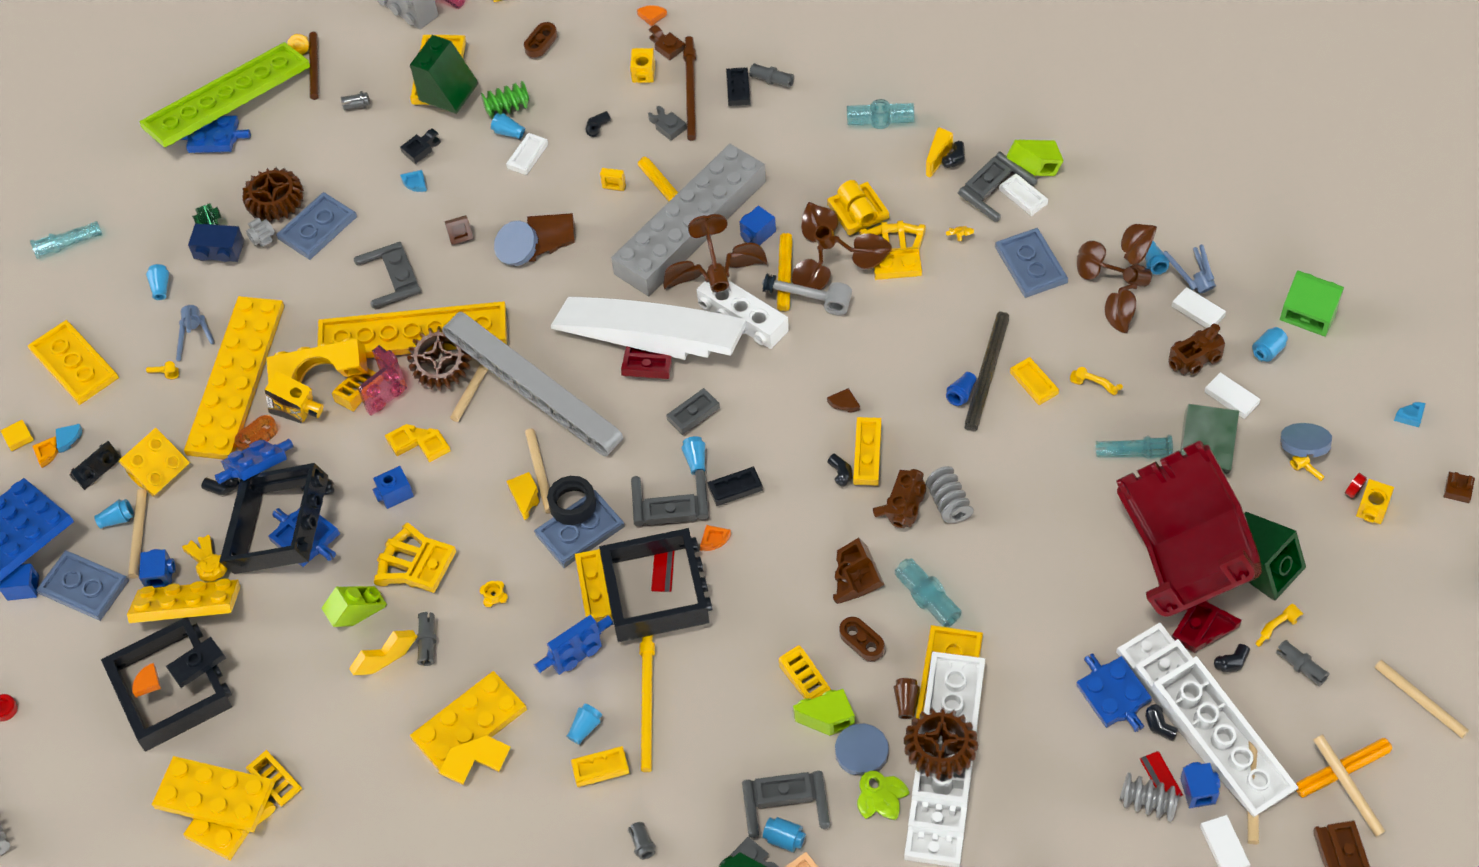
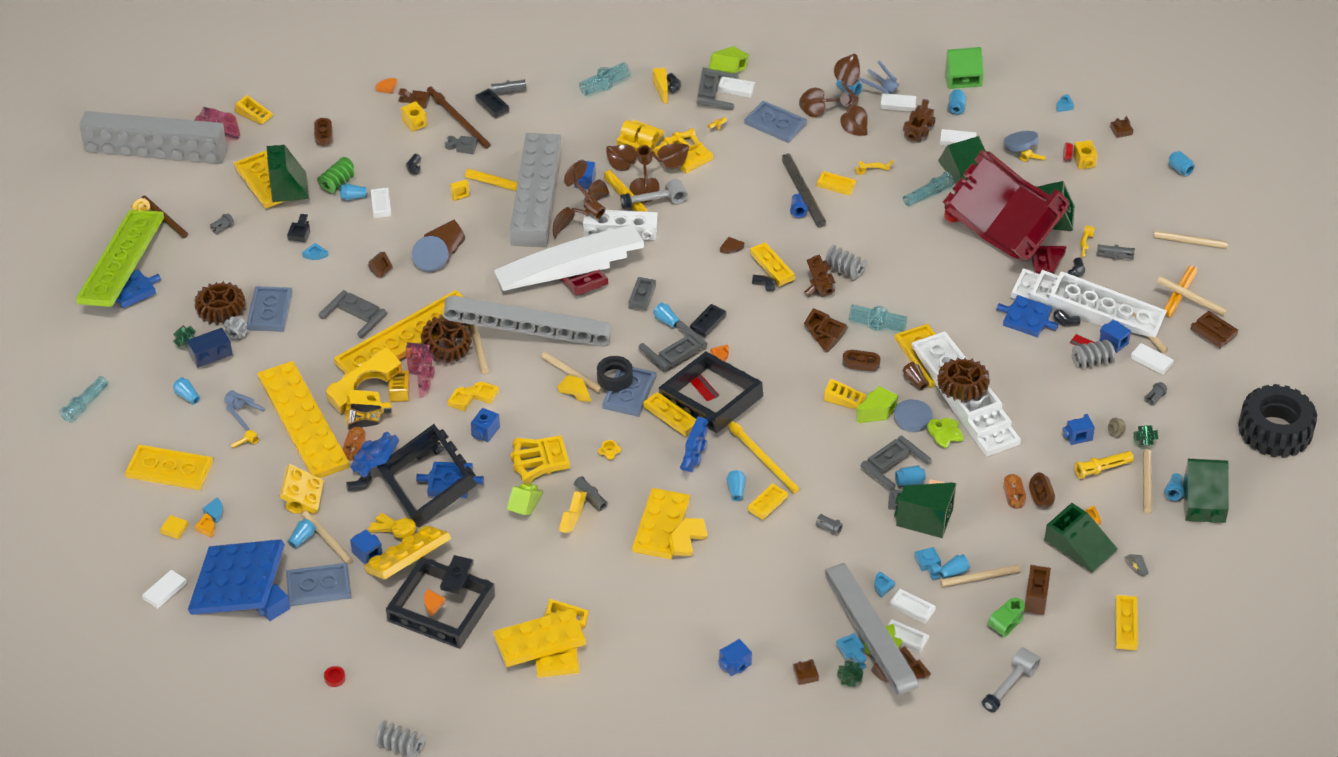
camera: 40 degrees left, 10 degrees down
(95, 465) = (254, 514): black hinge -> none

